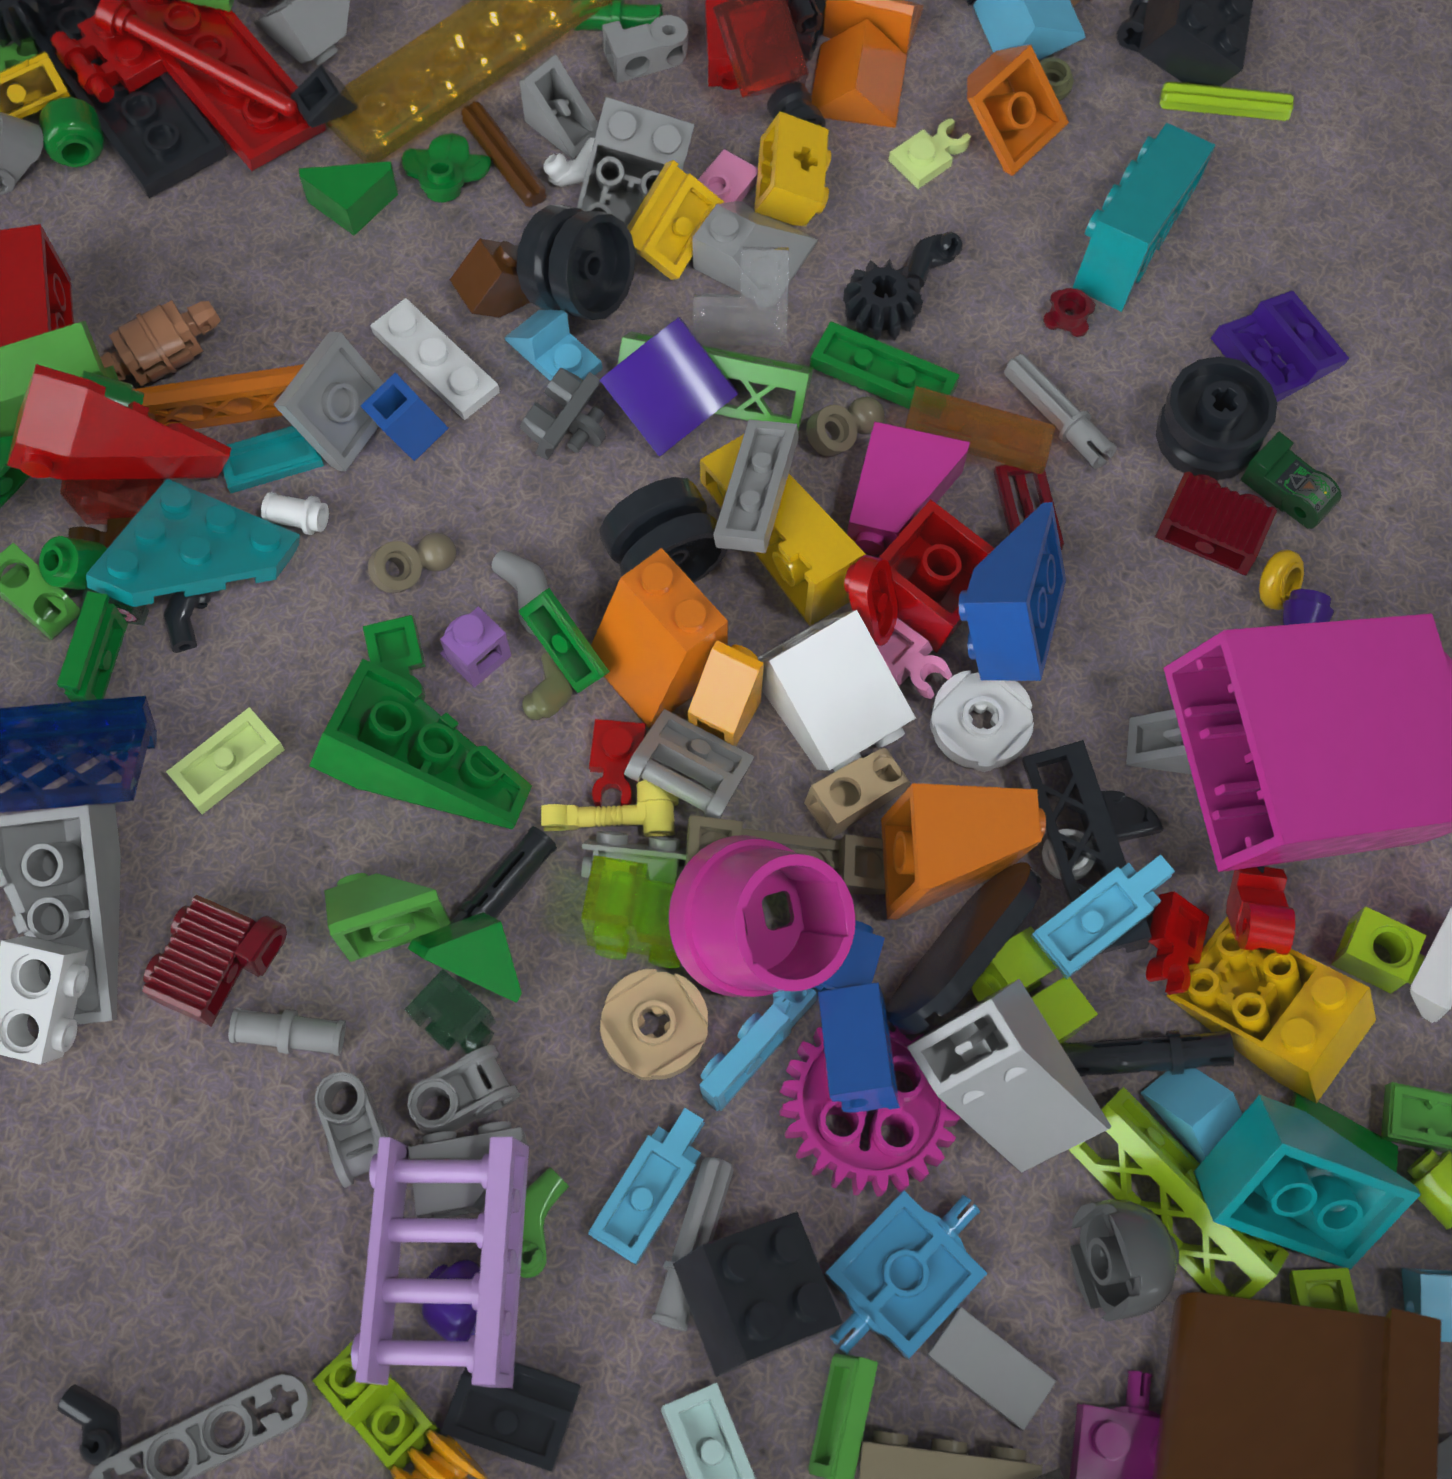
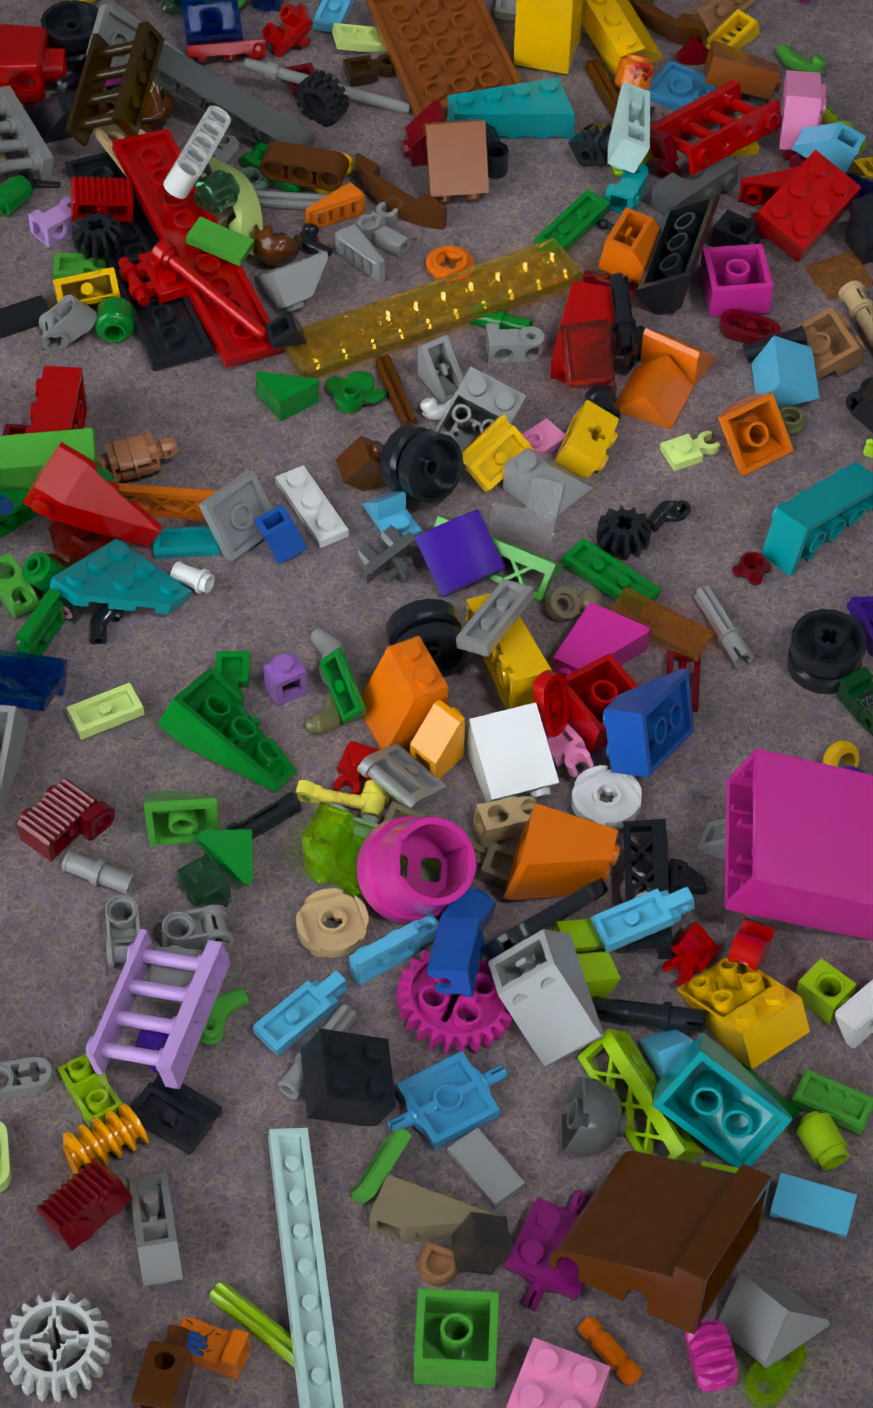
camera: 15 degrees right, 15 degrees down
(433, 552) = (275, 621): dark tan plate -> none
(1216, 522) = (806, 715): dark red brick -> none

